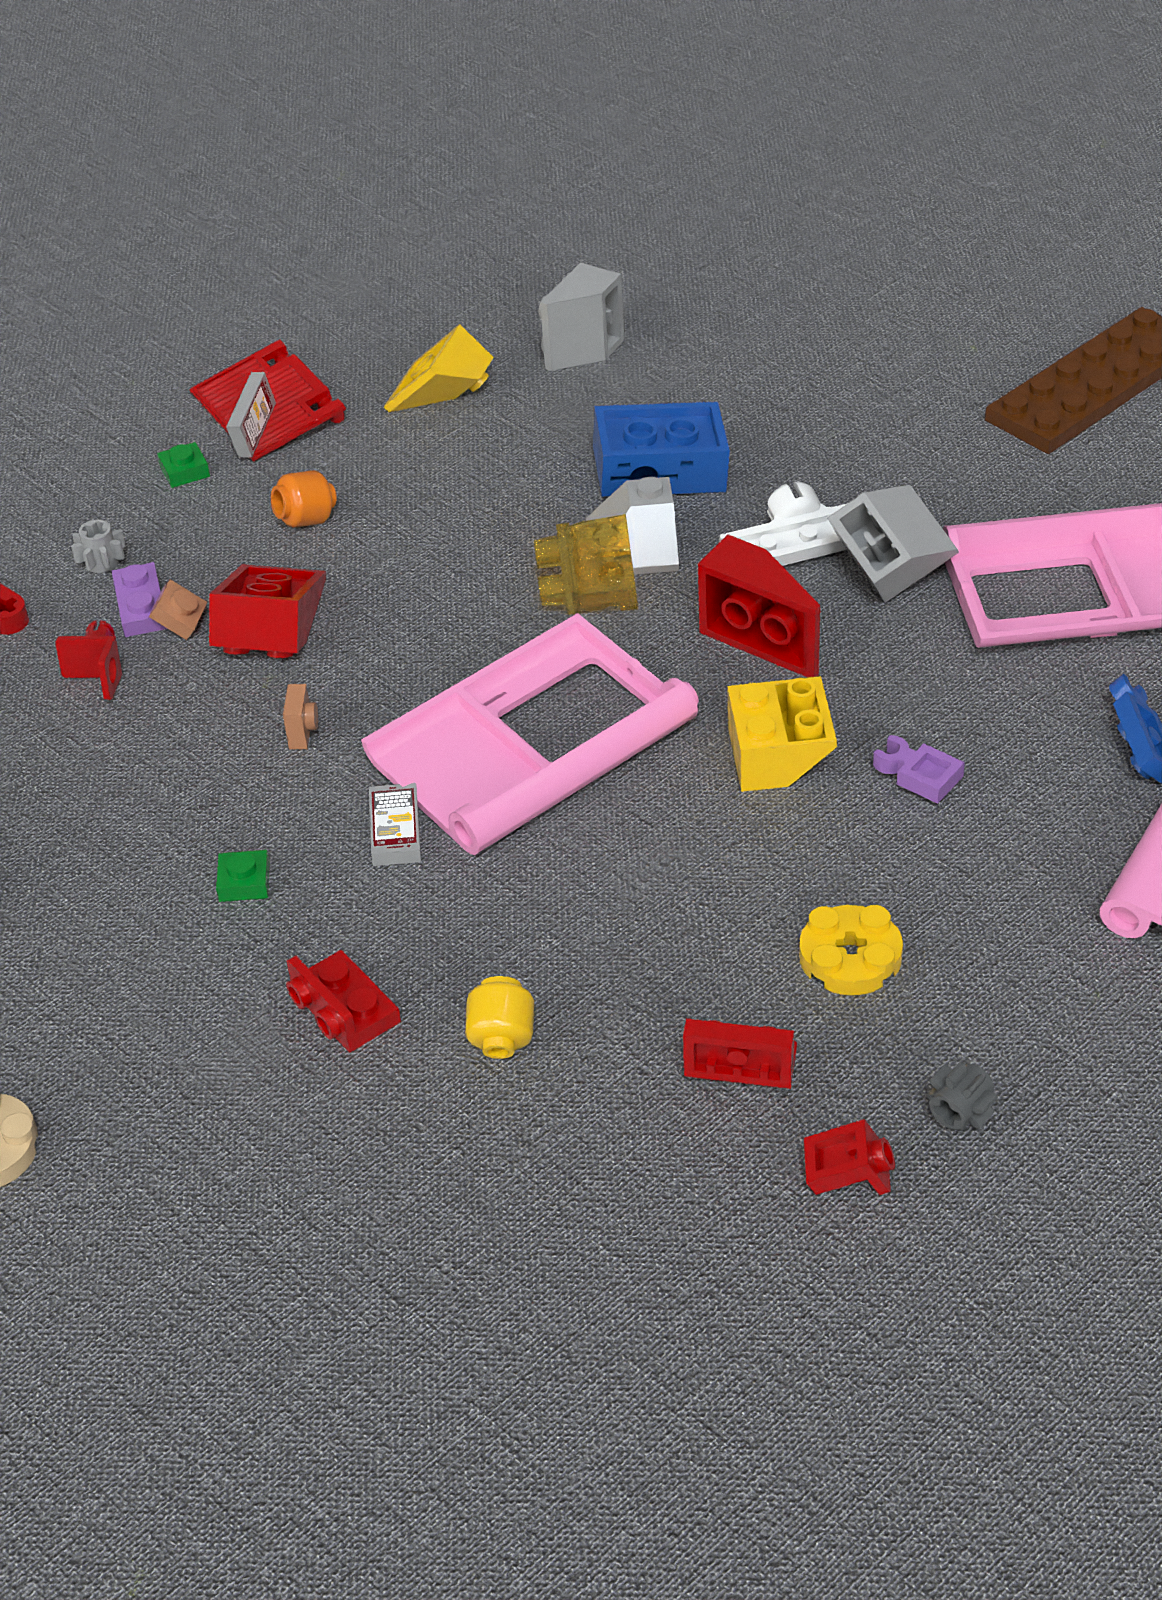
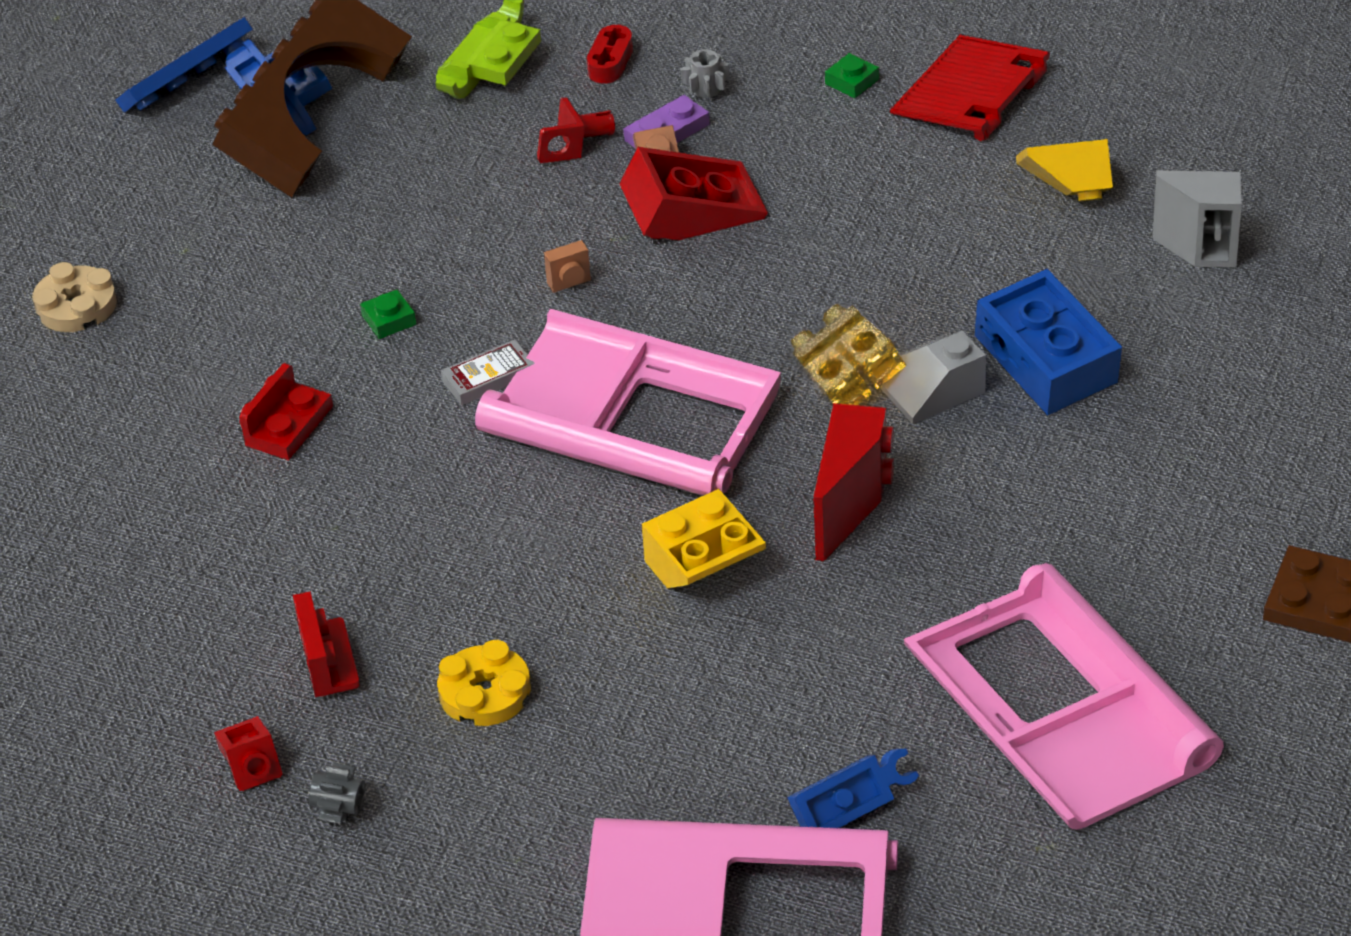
camera: 65 degrees right, 0 degrees up
(251, 414) = (922, 79): light grey tile -> none
(303, 498) = (838, 157): orange head -> none
(499, 1016) = (298, 503): yellow head -> none
(796, 528) = (1001, 479): white plate -> none
(892, 538) = (992, 528): light grey slope -> none
(920, 771) = (720, 660): medium lavender plate -> none

